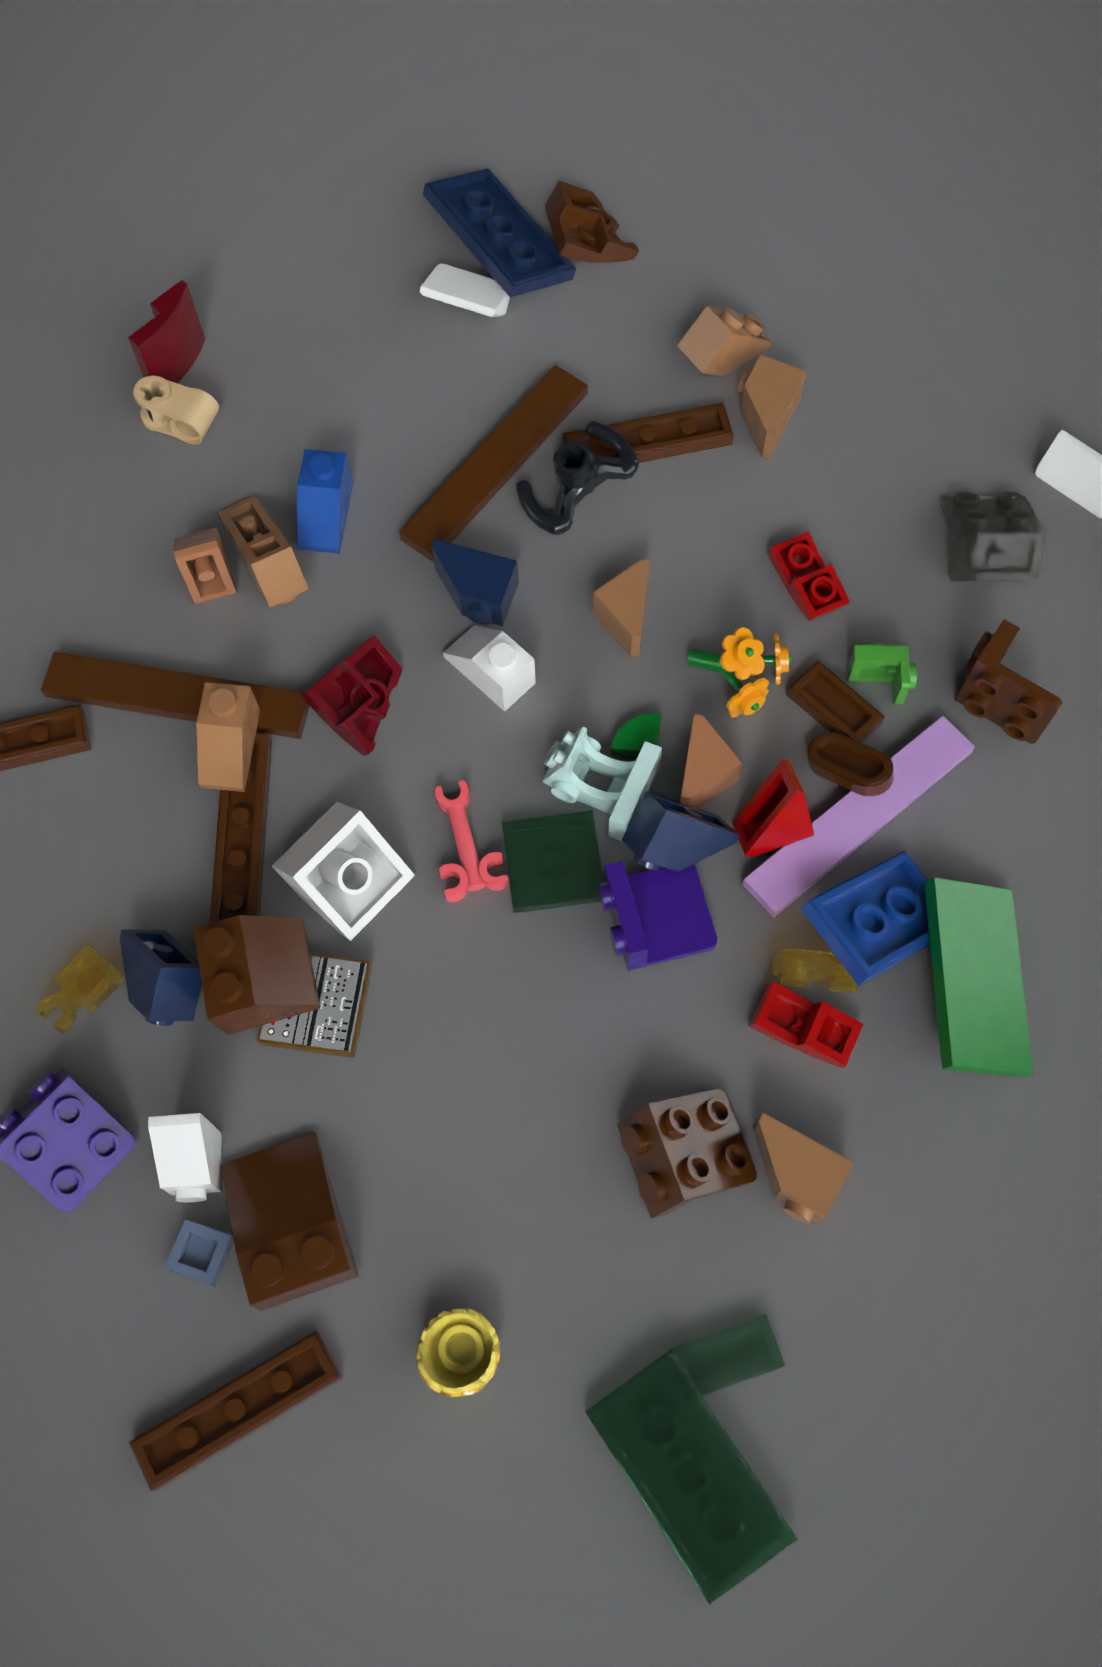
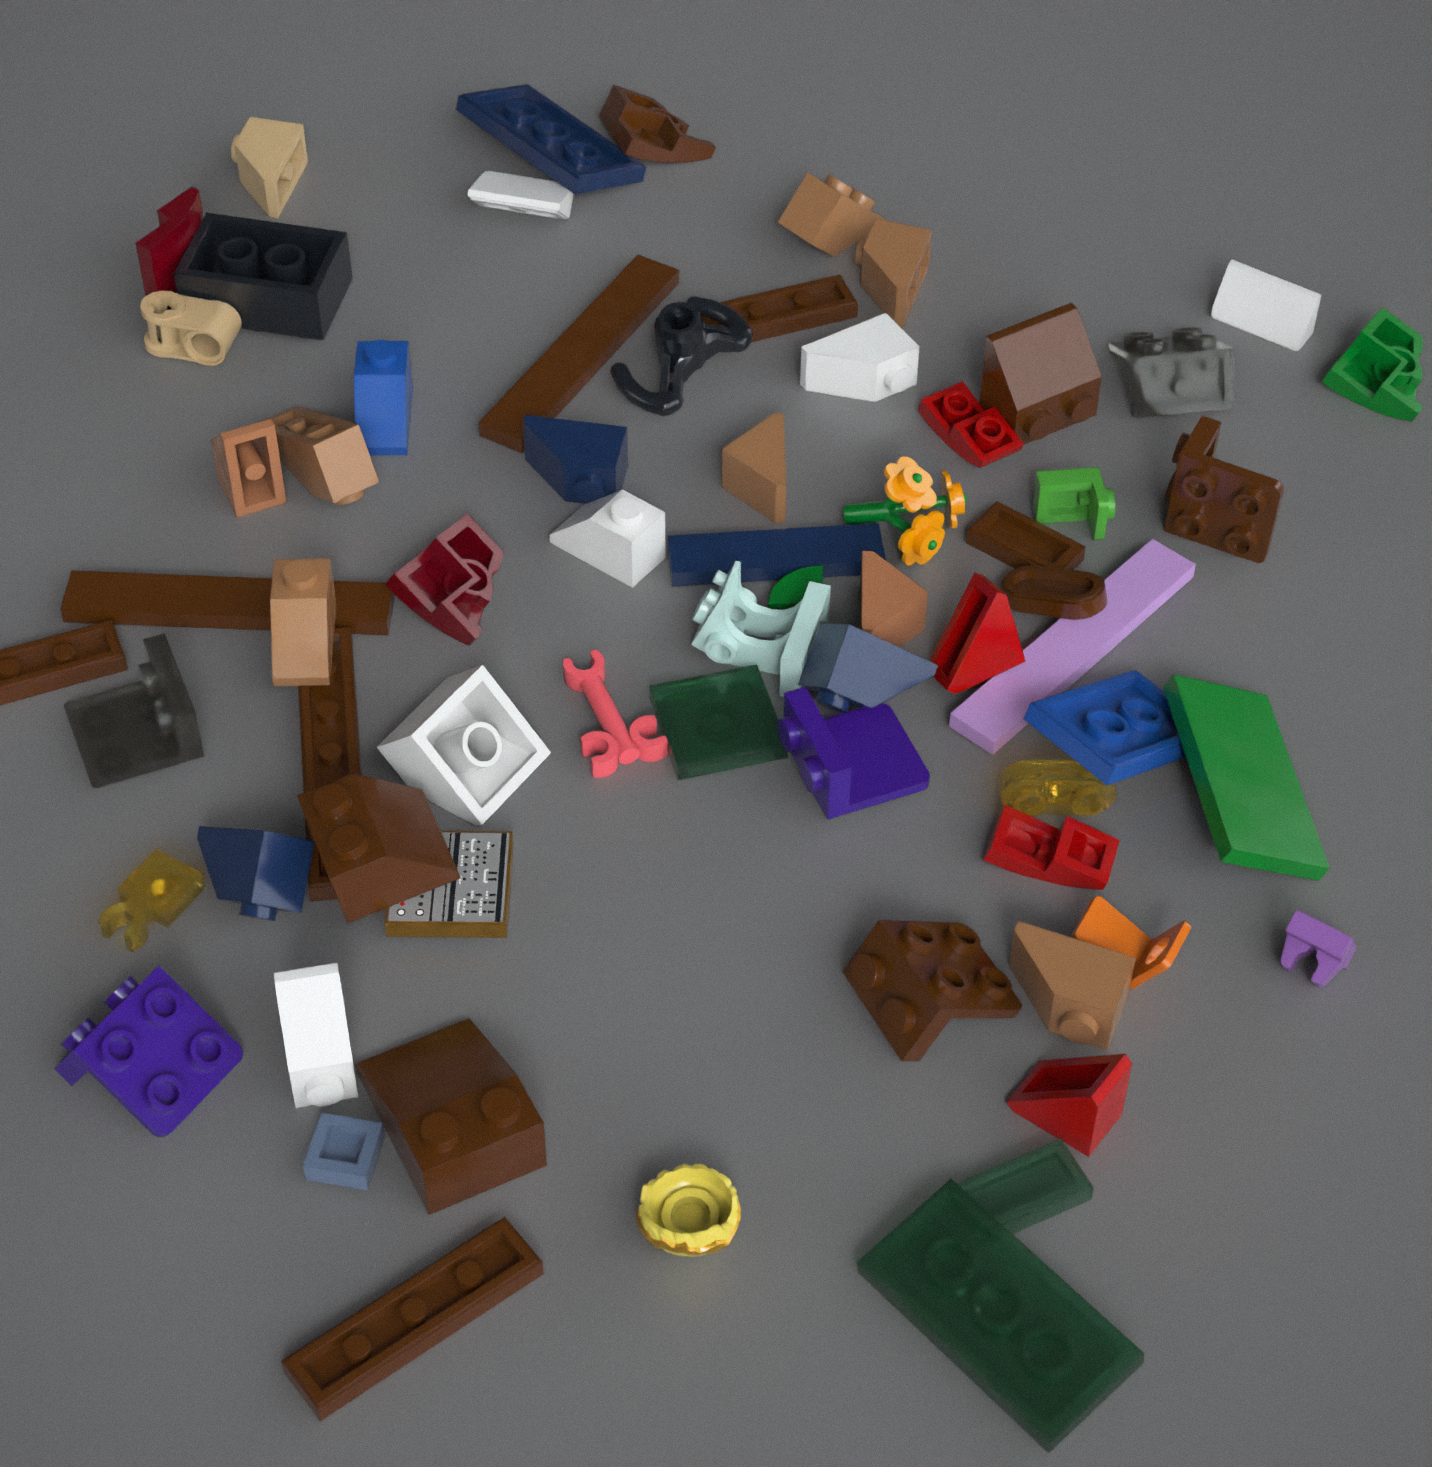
camera: 10 degrees left, 20 degrees down
(86, 813) = (137, 724): none -> clear smoke bracket
(242, 362) = (269, 271): none -> black brick
(263, 235) = (270, 161): none -> tan slope
(625, 693) = (772, 553): none -> dark blue tile
(727, 501) = (861, 361): none -> white slope
(779, 1277) = (1074, 1097): none -> red slope
(852, 1134) = (1110, 929): none -> orange bracket
(875, 540) = (1041, 374): none -> reddish brown slope
(1013, 1151) = (1310, 936): none -> medium lavender tile

